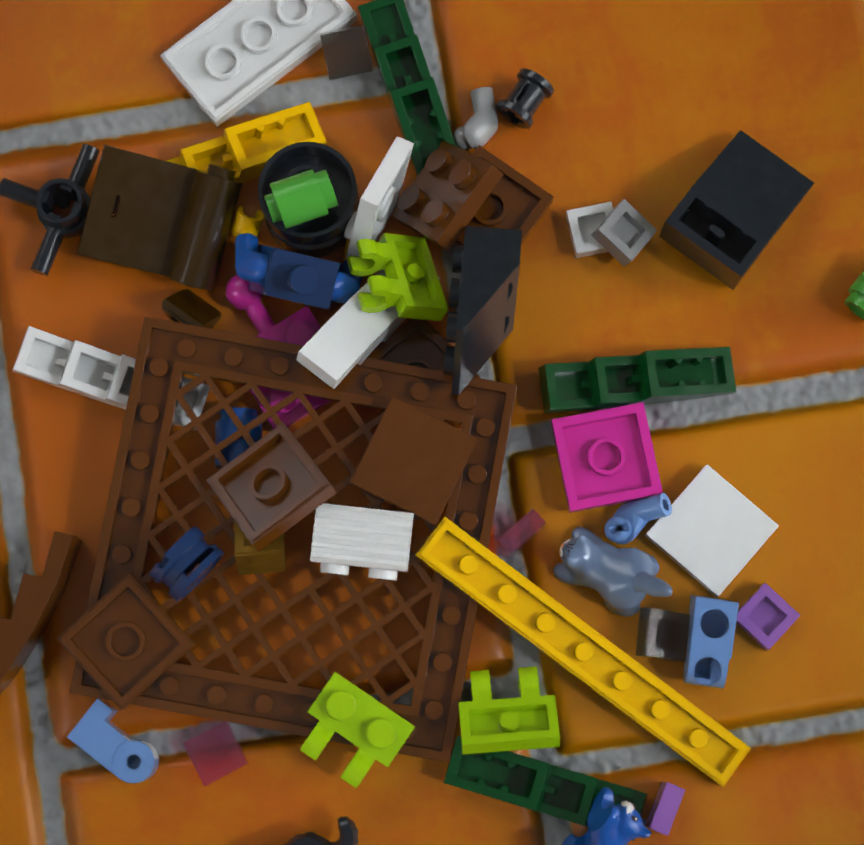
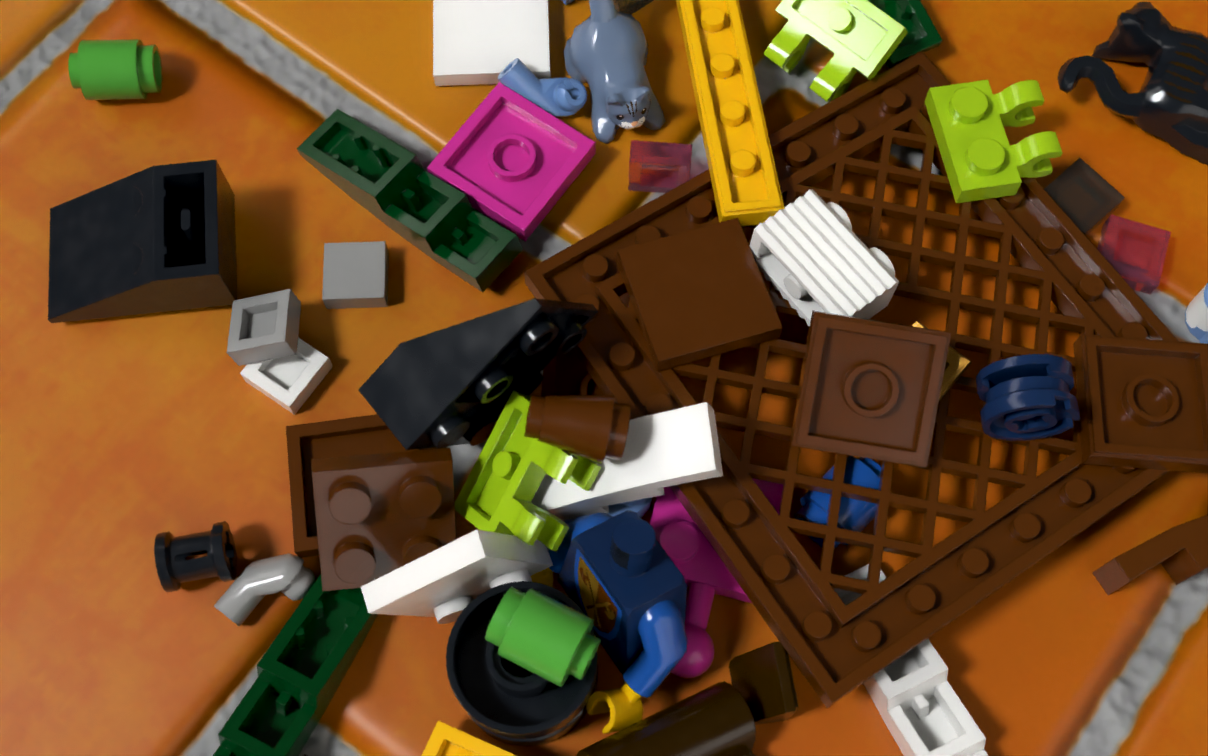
camera: 135 degrees left, 10 degrees down
(274, 760) = (1084, 196): none -> clear smoke tile
(387, 309) = (580, 424): none -> reddish brown cone
(617, 313) = (355, 275): none -> light grey tile

